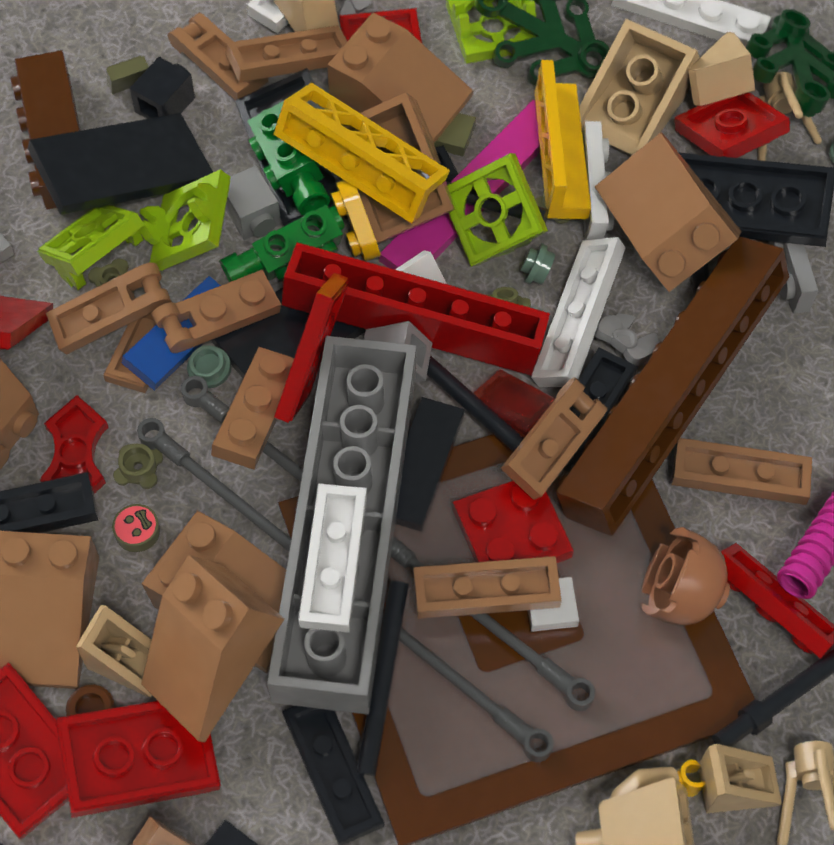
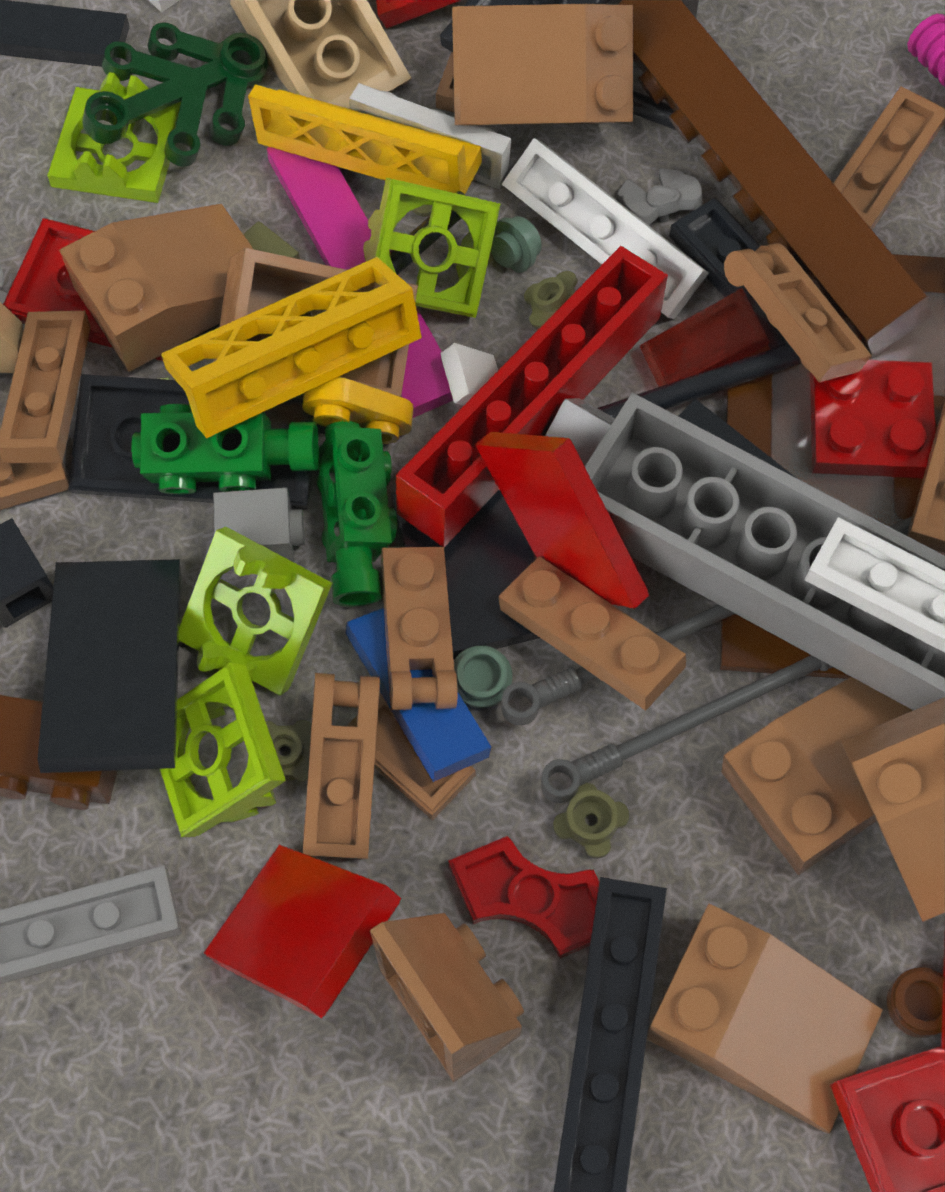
camera: 65 degrees left, 5 degrees up
(115, 649) = (867, 931): tan slope -> none
(137, 530) = (677, 855): tile -> none

